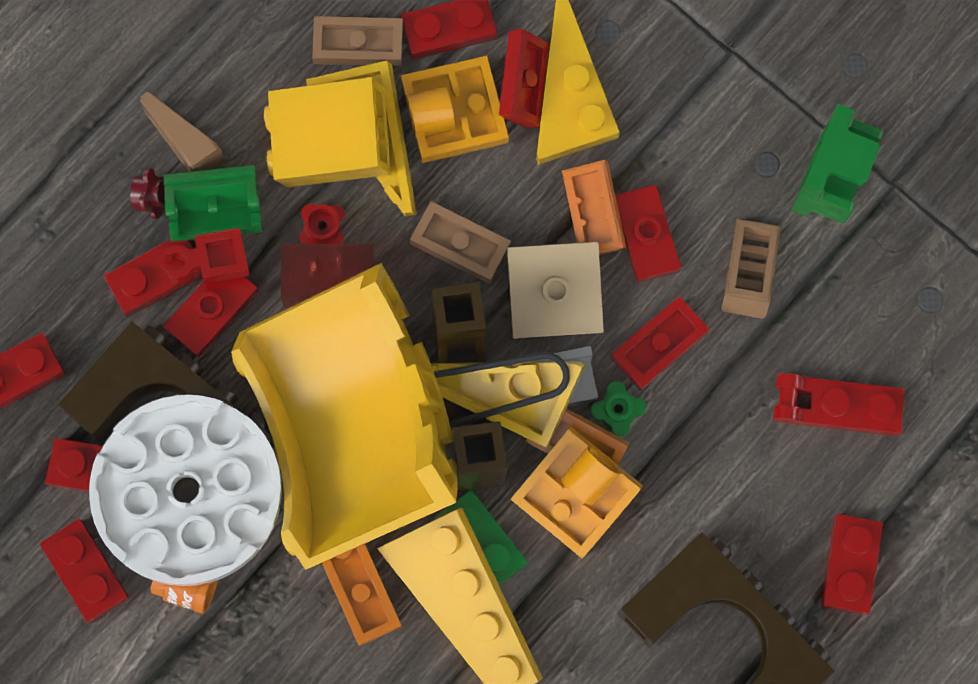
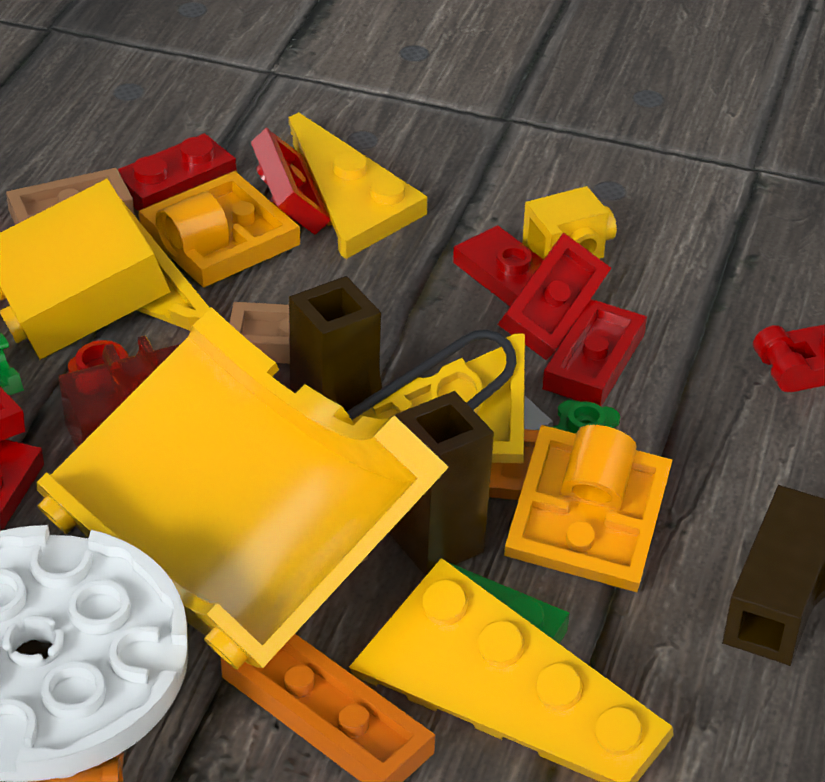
camera: 20 degrees left, 35 degrees down
(555, 289) = (427, 319): tan plate -> none
(594, 206) = (439, 261): orange plate -> none
(654, 286) = (555, 296): none -> red plate
(702, 214) = (572, 212): none -> yellow brick
(745, 295) = (657, 270): medium nougat slope -> none
(838, 166) = (687, 111): green panel -> none

